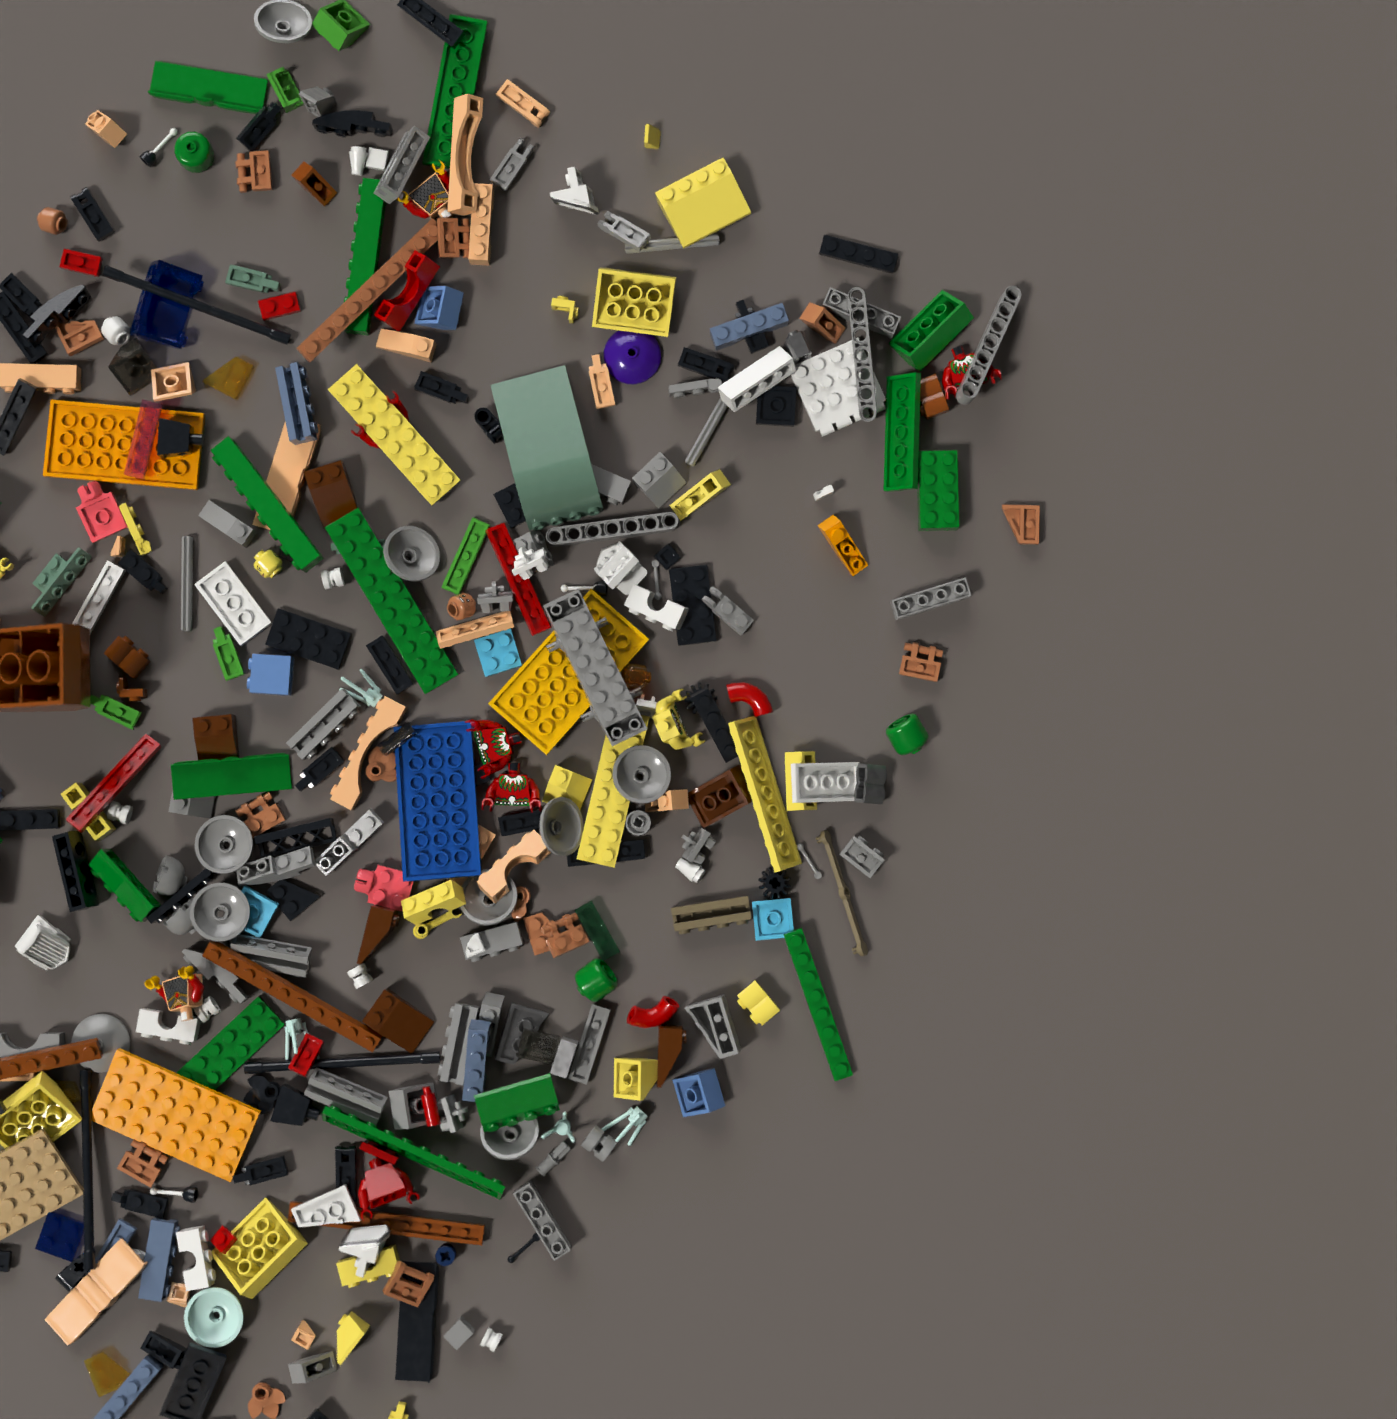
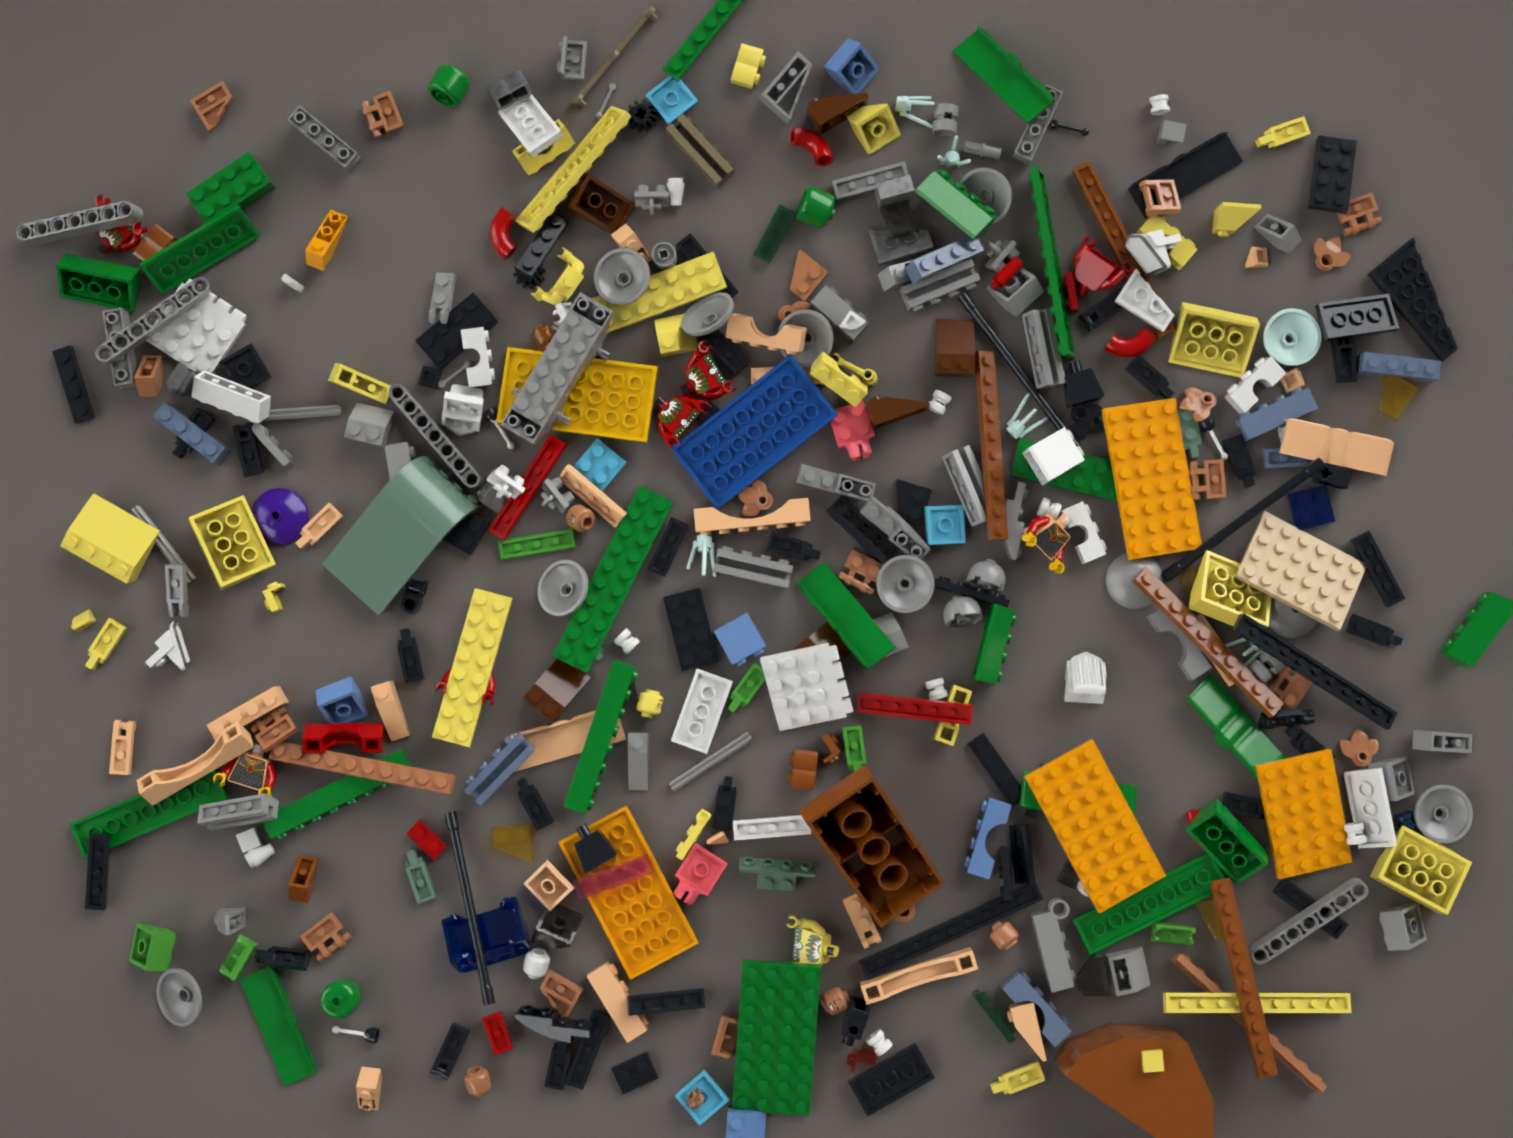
camera: 120 degrees left, 0 degrees up
(75, 871) = (1008, 692): black brick -> none
(192, 704) = (806, 686): none -> white hinge
(195, 1176) = (1190, 433): none -> sand green hinge
(212, 900) = (952, 538): light grey dish -> none
(212, 1196) = (1195, 403): none -> nougat plate
(223, 1239) = (1225, 372): red plate -> none
(246, 1042) = (1053, 455): none -> white slope
(248, 413) = (534, 805): none -> black hinge
(298, 1172) = (1131, 347): none -> red cylinder
(306, 1056) = (1027, 402): red plate -> none
(344, 122) = (233, 888): black slope -> none
(396, 739) = (724, 499): clear smoke slope -> none
(448, 1251) = (1114, 188): dark blue wheel -> none
(511, 166) = (183, 722): light grey hinge -> none
(565, 941) = (798, 251): nougat plate -> none
(603, 1219) = (1004, 75): none -> green piece
(620, 144) = (105, 643): none -> light yellow hinge

